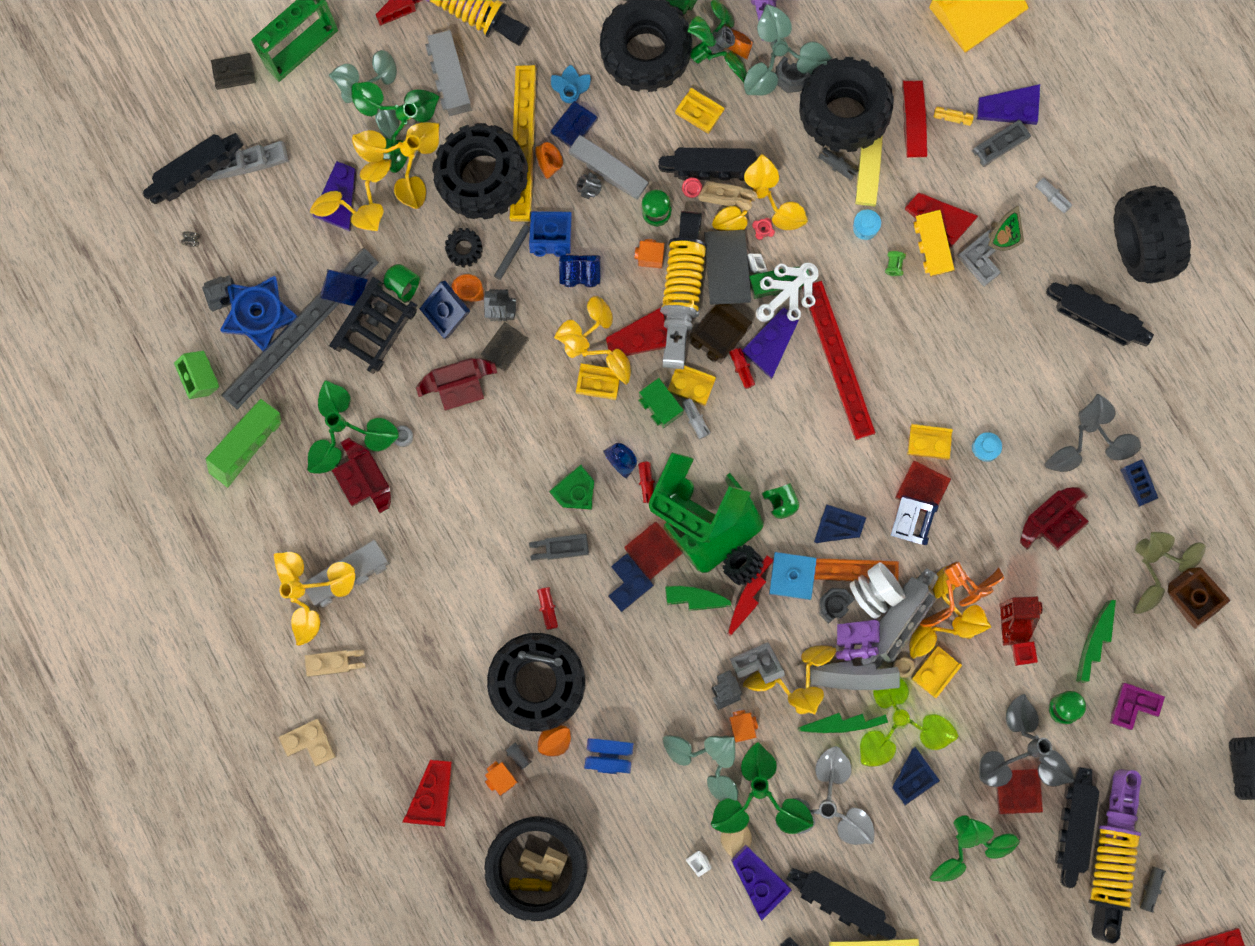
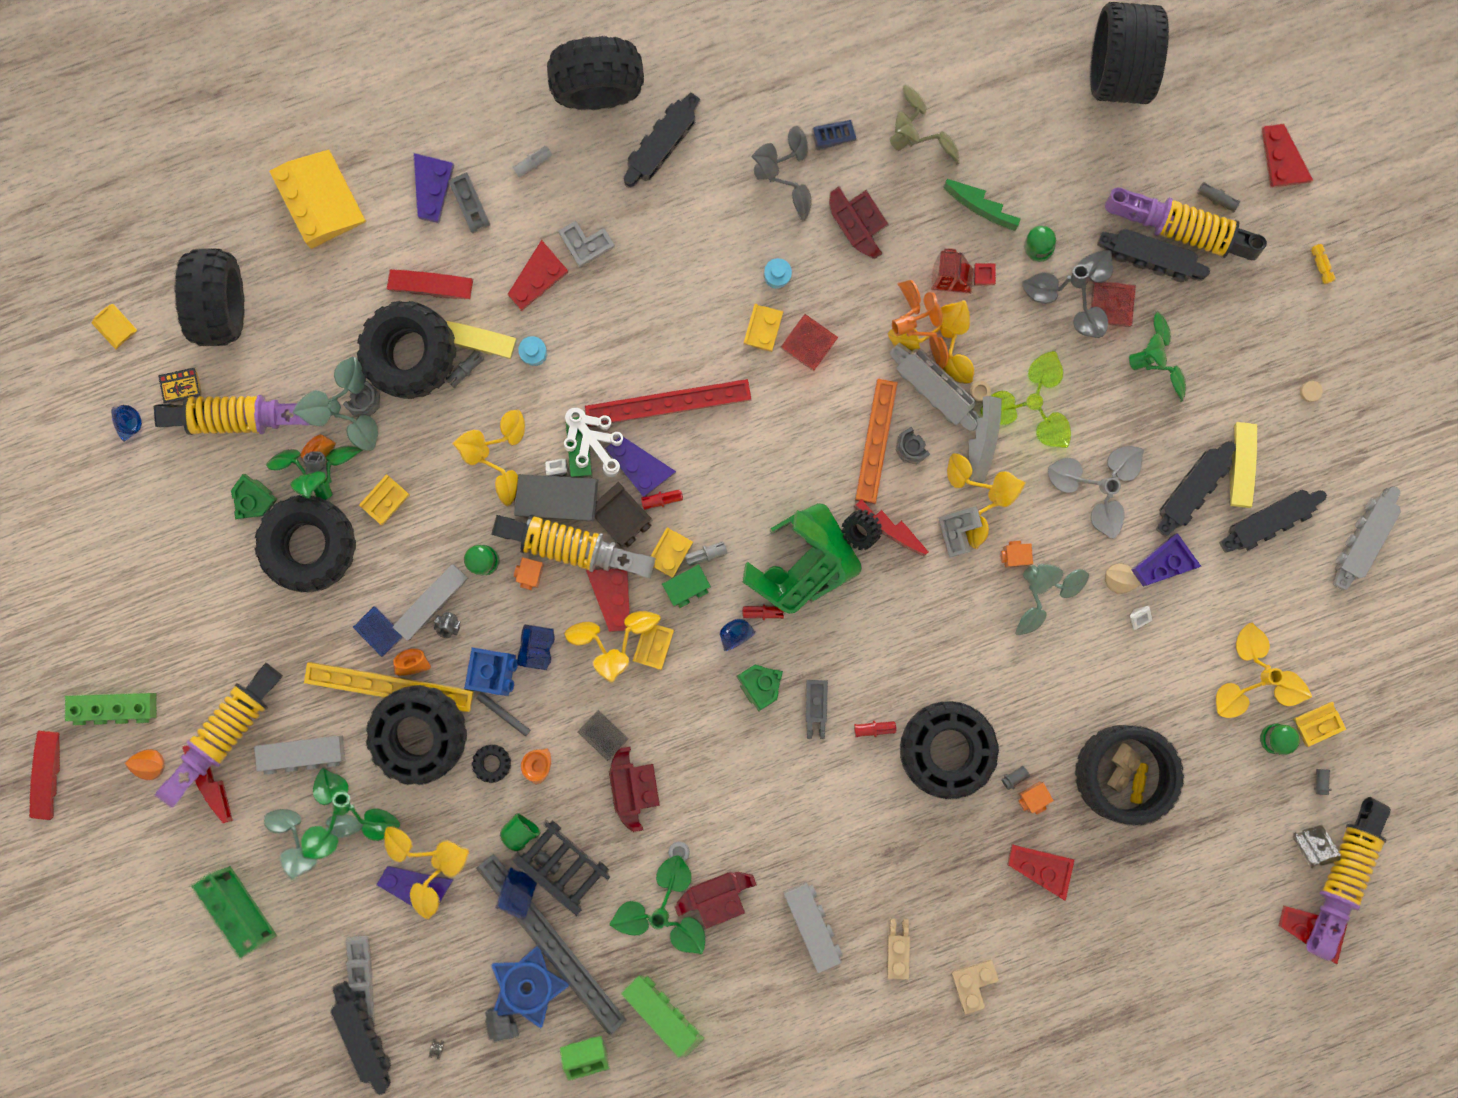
camera: 90 degrees left, 5 degrees up
(233, 71) = (257, 983): clear smoke plate -> none
(289, 569) = (856, 974): yellow plant -> none
(420, 138) = (368, 790): yellow plant -> none
(444, 309) = (555, 791): dark blue plate -> none
(499, 305) = (559, 734): dark grey hair -> none
(522, 655) = (937, 725): dark grey hinge -> none
(554, 741) = (1008, 740): orange piece -> none
(570, 82) = (330, 628): dark azure plate -> none
(608, 756) = (1030, 689): blue wheel -> none
(634, 583) = (861, 639): dark blue plate -> none
(653, 550) = (832, 616): clear red plate -> none
(691, 187) = (465, 520): coral plate -> none
(696, 598) = (886, 581): green slope -> none
(708, 163) = (443, 494): black hinge -> none
(726, 691) = (981, 565): dark grey hair -> none
(727, 195) = (481, 486): tan hinge -> none
(759, 767) = (1055, 547): green plant -> none
(766, 223) = (525, 459): coral plate -> none
(787, 495) = (800, 474): green helmet -> none
(792, 576) = (878, 483): dark azure plate -> none
(834, 724) = (1027, 466): green slope -> none
(839, 525) = (833, 430): dark blue wing -> none
(858, 633) = (944, 427): medium lavender plate -> none
(874, 592) = (906, 403): white wheel -> none
(895, 263) = (578, 329): bright green bush -> none
(907, 518) = (837, 362): plate -> none
(914, 778) = (1087, 399): dark blue wing -> none
(934, 243) = (565, 287): yellow brick -> none
(936, 672) = (989, 361): yellow plate -> none
(953, 116) = (432, 245): yellow axle -> none
(1007, 231) = (564, 213): shield -> none
(1135, 699) = (1042, 183): magenta plate -> none
(1197, 596) = (952, 102): reddish brown slope -> none

